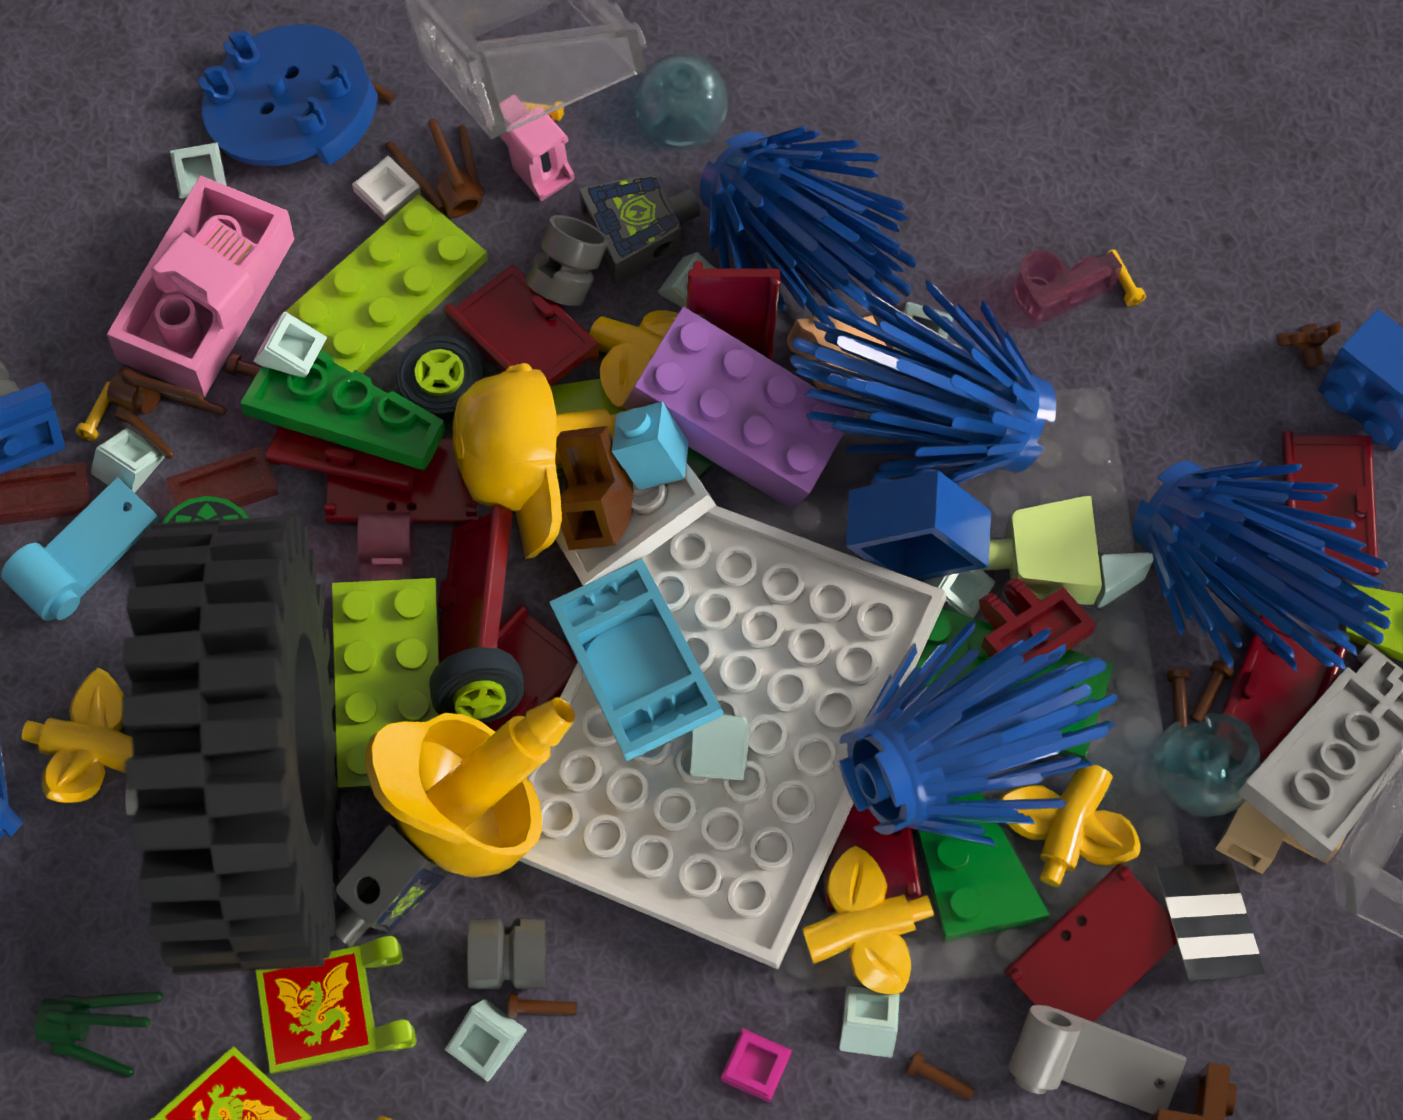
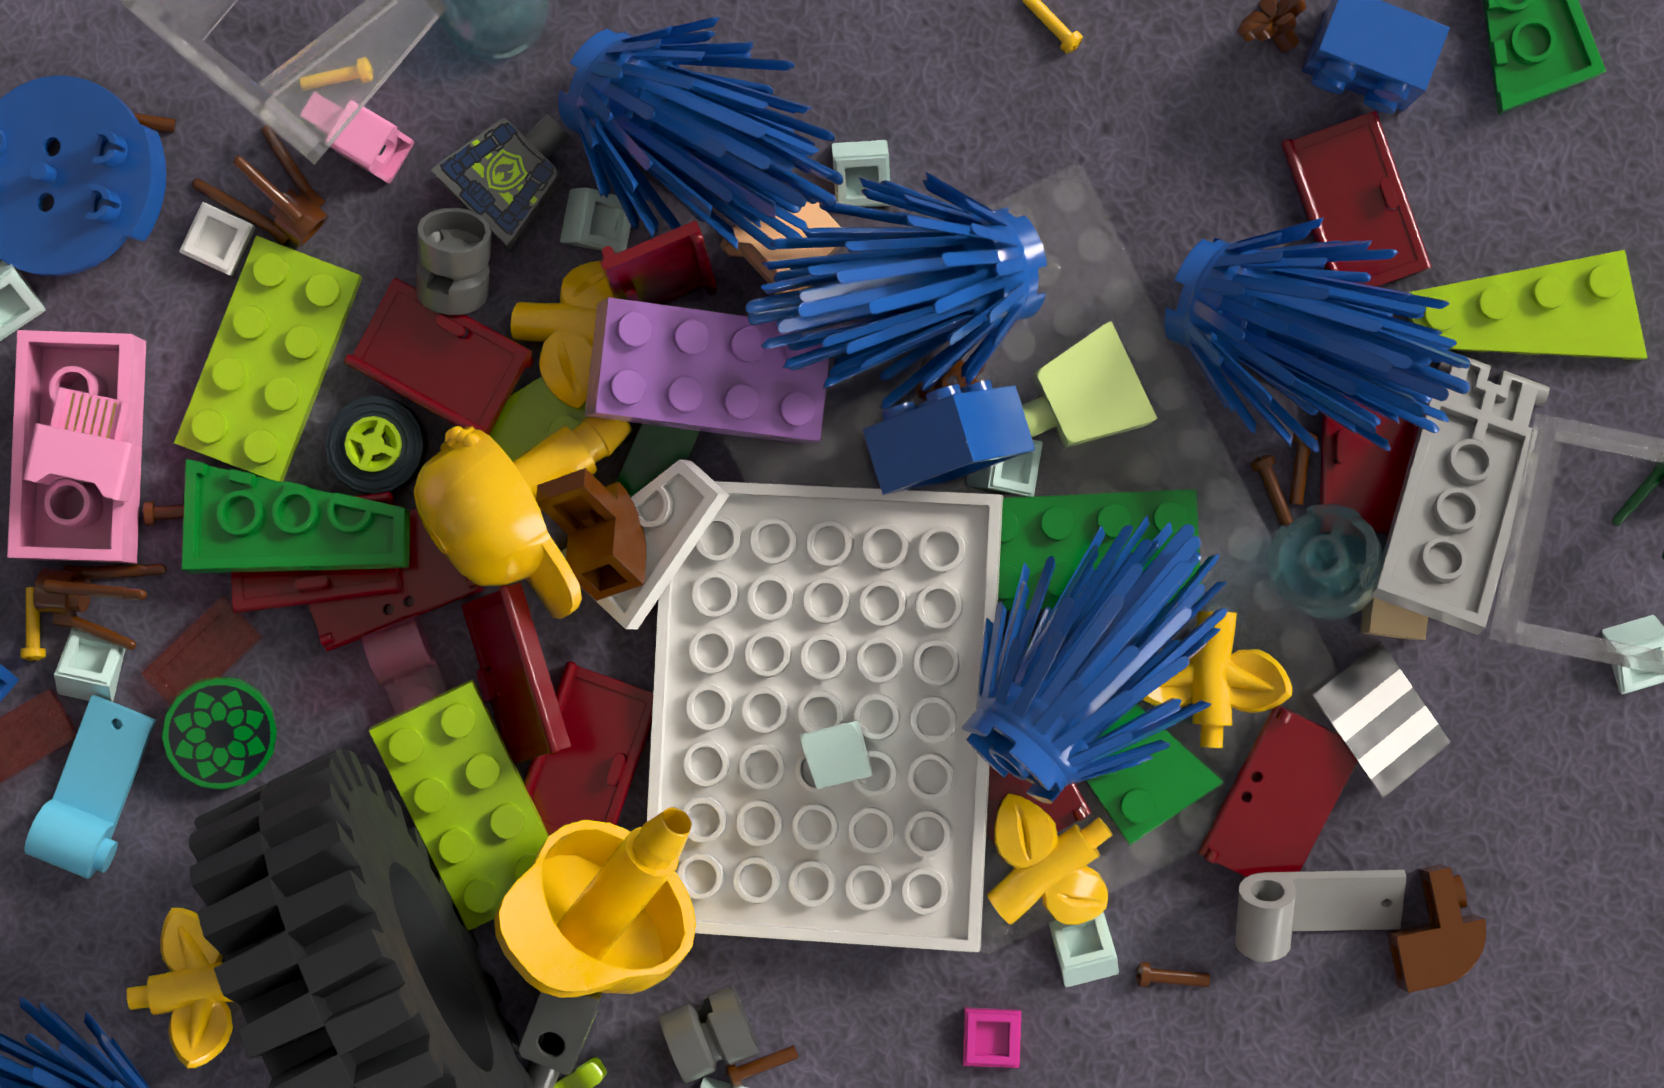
camera: 25 degrees left, 20 degrees up
(290, 346) = (204, 483): light aqua slope -> none
(477, 684) = (564, 784): black wheel -> none
(635, 659) = (715, 696): medium azure slope -> none
(650, 445) = (635, 460): medium azure brick -> none
(1057, 612) = (1112, 496): dark red hinge -> none
(1064, 287) = (1015, 46): clear pink plate -> none
(1121, 574) = (1167, 389): light aqua slope -> none

